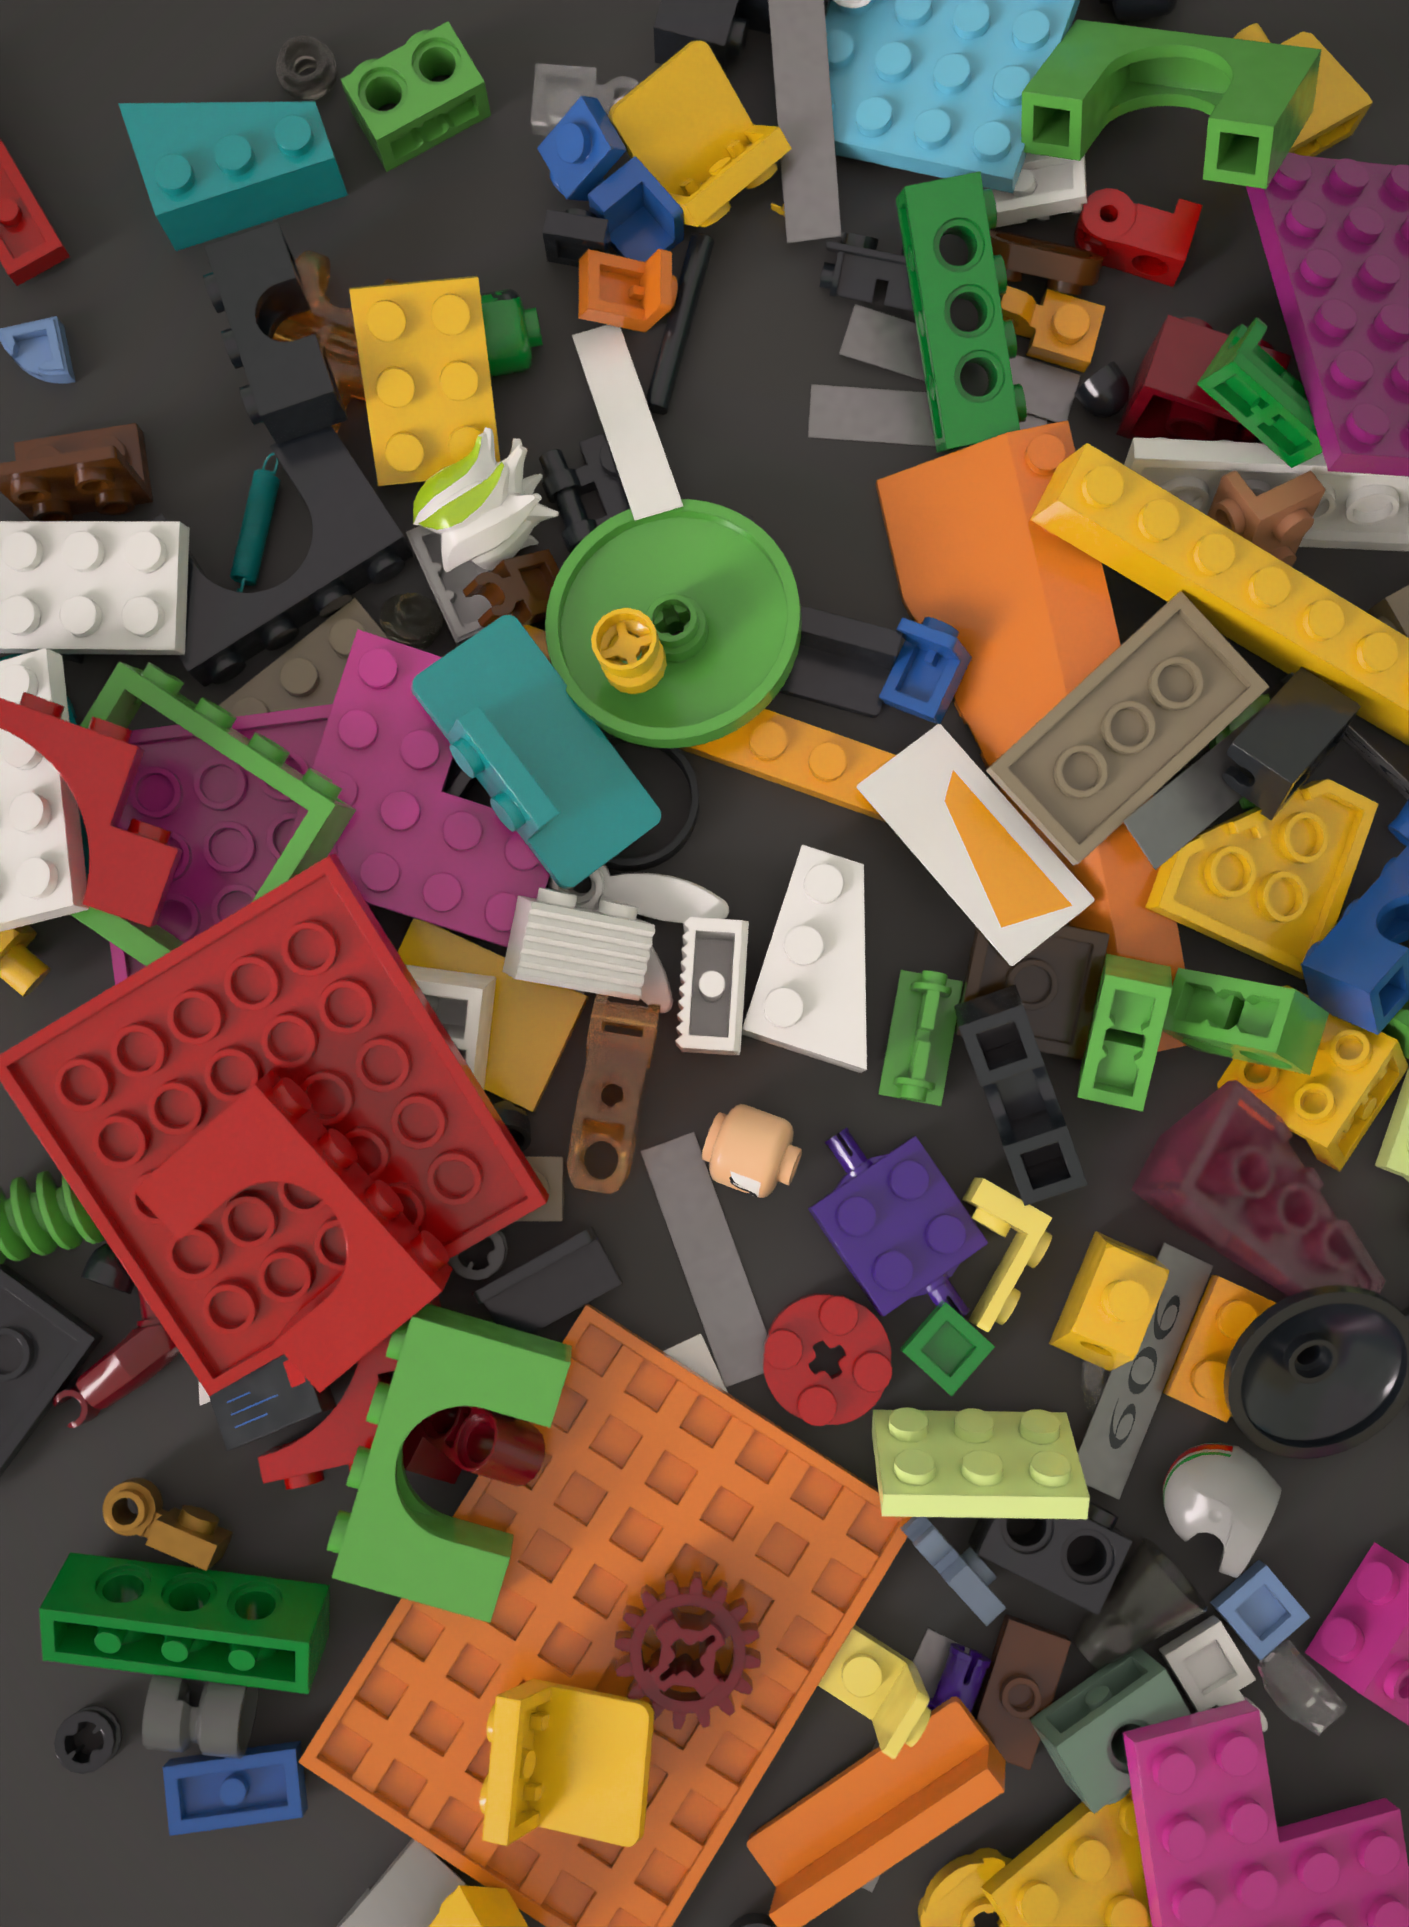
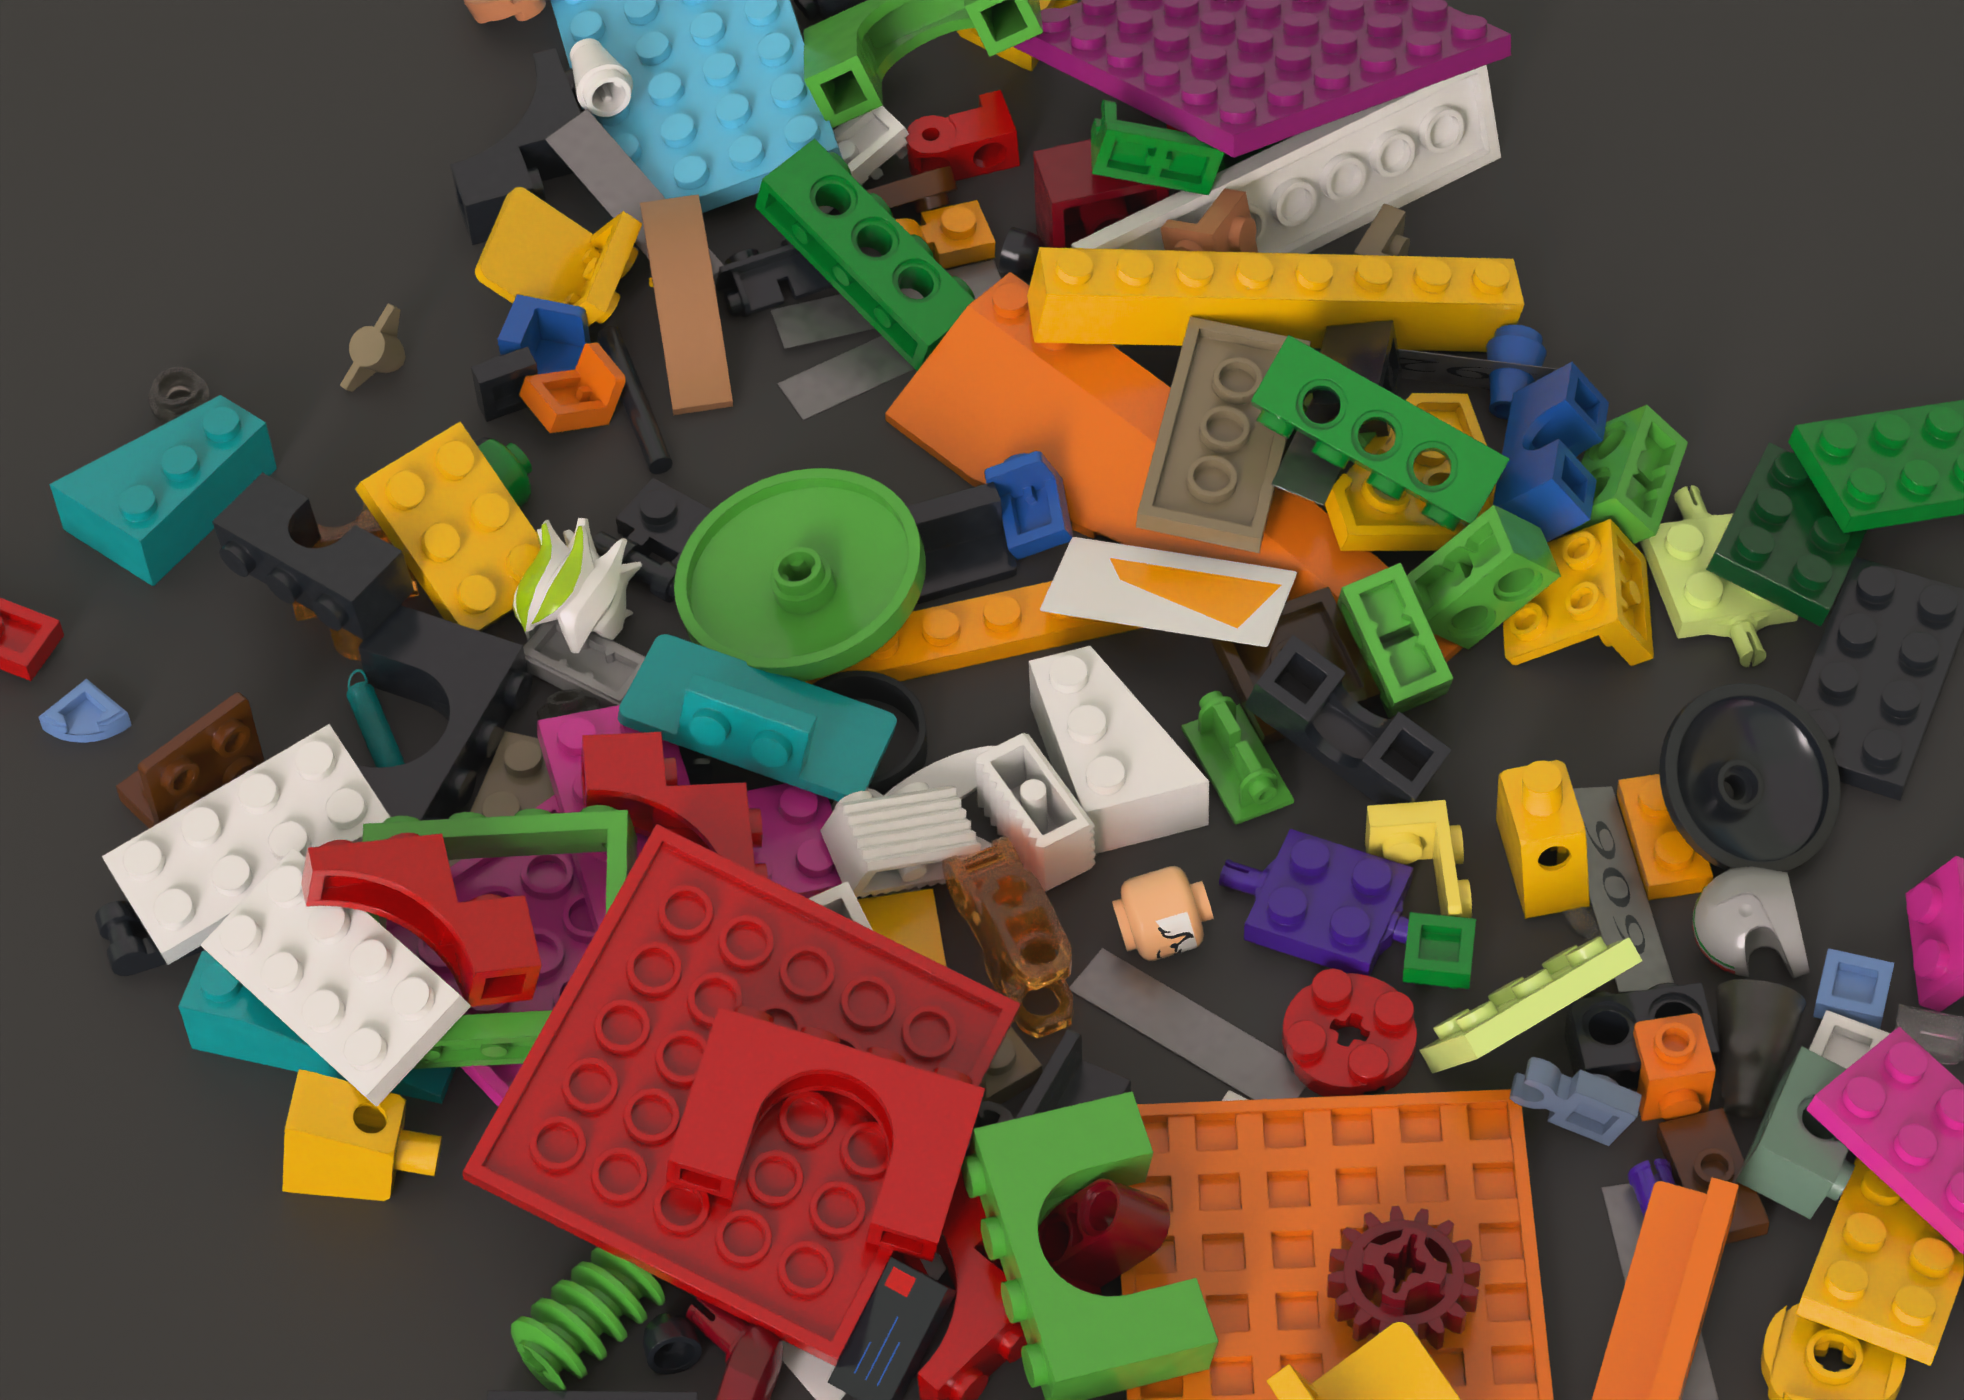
camera: 30 degrees left, 30 degrees down
(423, 853) = (634, 776): none -> red arch
(425, 109) = (292, 361): bright green brick -> none
(493, 128) = (375, 349): none -> dark tan piece
(517, 587) = (639, 630): reddish brown plate -> none
(562, 85) = (434, 298): clear plate -> none
(581, 149) = (468, 316): blue bracket -> none
(621, 638) = (784, 593): yellow wheel -> none
(627, 422) = (646, 476): white sticker -> none
(779, 251) = (686, 304): none -> medium nougat slope
(880, 1687) = (1590, 1241): light yellow bracket -> none
(1055, 1594) = (1675, 1067): none -> orange bracket
(1230, 739) = (1303, 370): none -> green brick
(1247, 1195) = (1576, 705): clear pink wedge -> none

